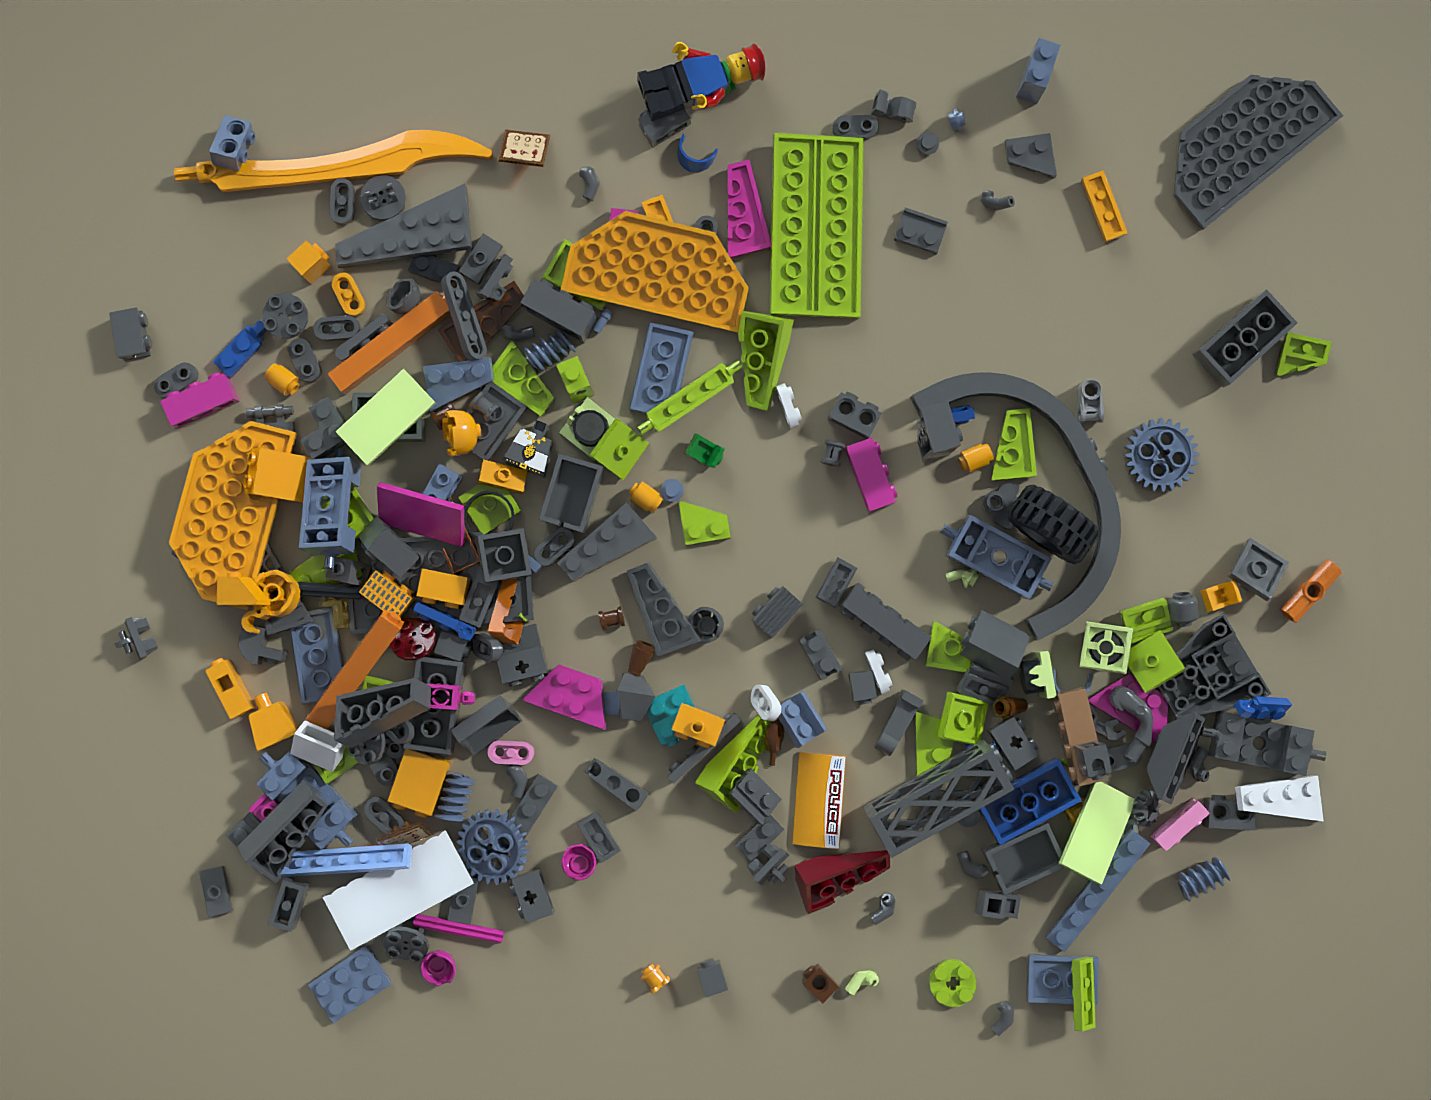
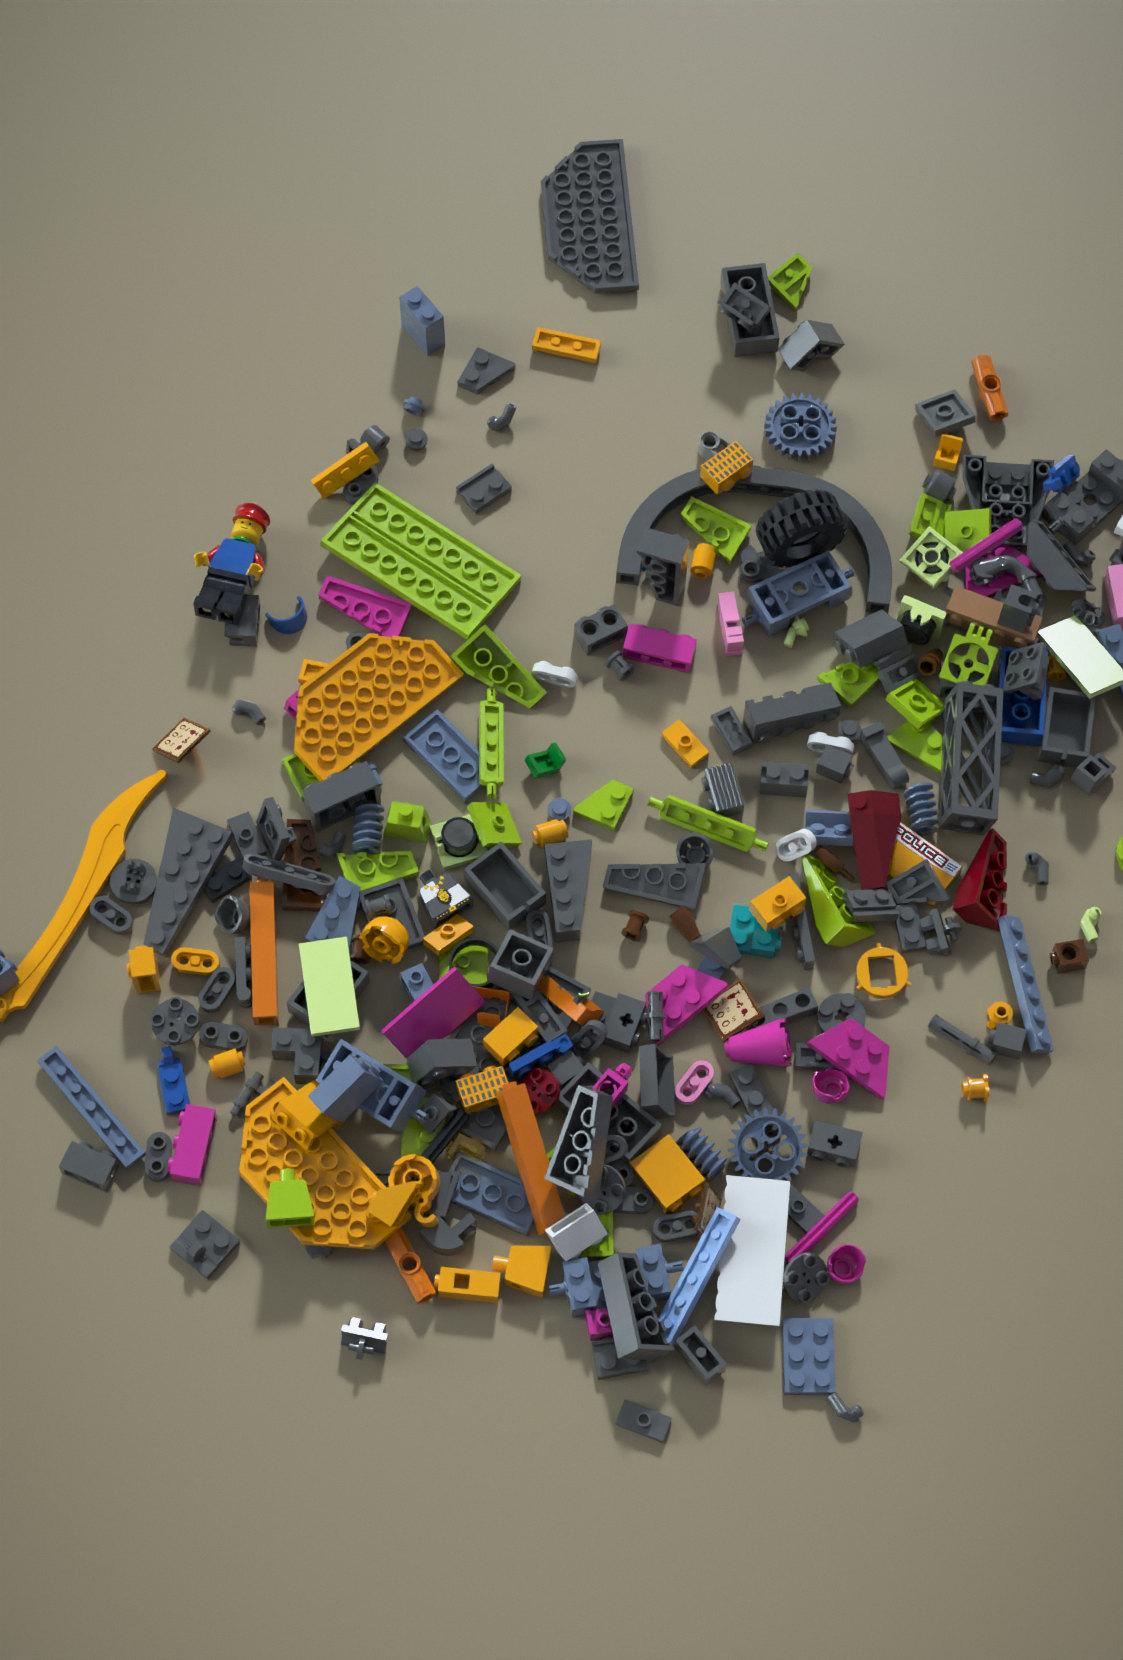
camera: 55 degrees left, 20 degrees down
(131, 465) = (205, 1244): none -> dark grey hinge
(178, 301) = (91, 1107): none -> sand blue plate
(187, 511) = (289, 1202): none -> lime torso
(207, 646) = (416, 1279): none -> orange piece
(301, 493) = (346, 1088): none -> sand blue brick
(323, 1041) = (850, 1414): none -> dark grey arm
(541, 687) = (655, 1016): none -> dark grey pin
(574, 787) = (762, 1045): none -> dark pink cone
(589, 745) = (733, 1011): none -> piece
(618, 865) = (856, 1054): none -> dark pink wing
(645, 818) = (839, 1003): none -> dark grey plate
(690, 941) = (970, 1044): none -> dark grey pin
(713, 856) = (900, 971): none -> light orange piece
(731, 950) = (994, 1017): none -> light orange brick
(739, 618) = (708, 823): none -> lime plate
(771, 962) = (1025, 985): none -> sand blue plate
(797, 823) = (917, 885): none -> dark grey wing
(800, 552) = (685, 743): none -> light orange plate
(820, 758) = (874, 831): none -> dark red wedge
(853, 106) = (345, 470): none -> light orange plate
(869, 782) = (918, 809): none -> sand blue piece
(902, 678) = (849, 729): none -> dark grey plate
(932, 518) = (728, 617): none -> bright pink piece
(1046, 737) = (976, 642): none -> lime piece
(1046, 797) = (1027, 670): none -> dark grey bracket
(1070, 423) = (726, 468): none -> light orange brick
(1147, 687) = (986, 545): none -> dark pink axle
(1236, 335) = (744, 306): none -> dark grey bracket
(1246, 411) = (808, 342): none -> dark grey brick

